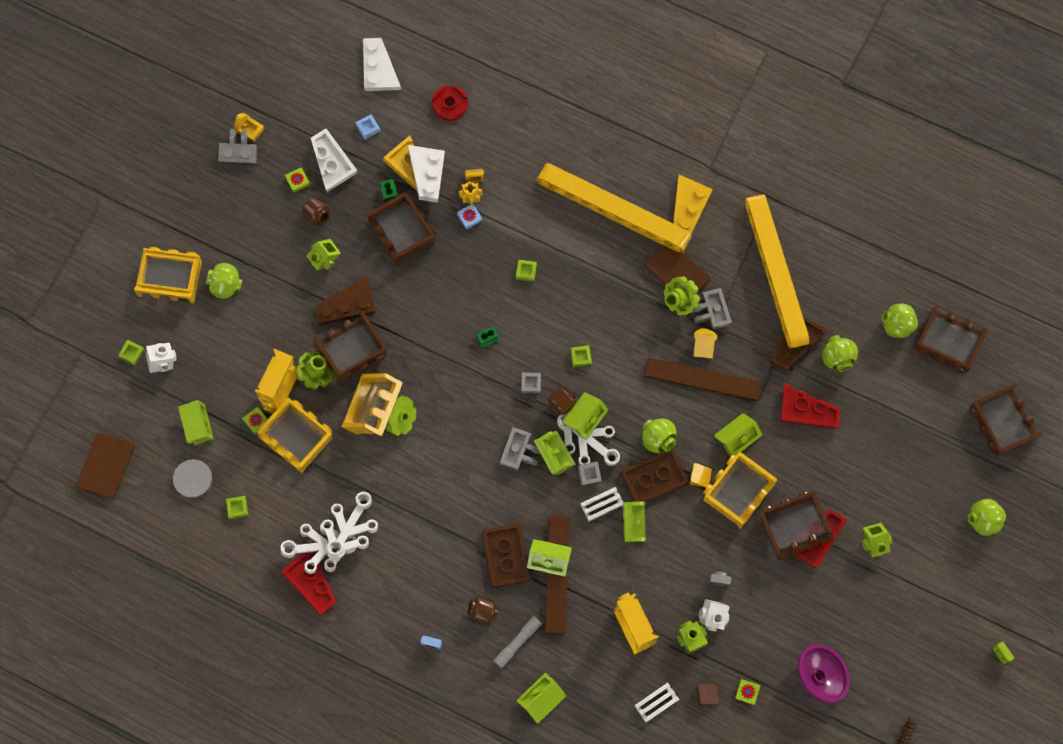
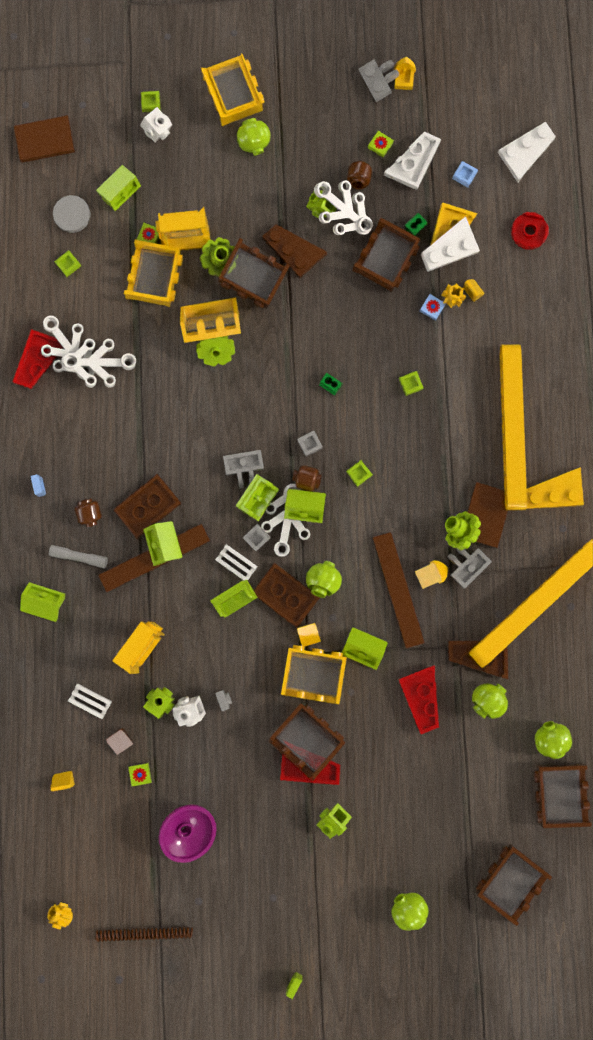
camera: 70 degrees right, 10 degrees up
(359, 232) = (345, 208): none -> white plant

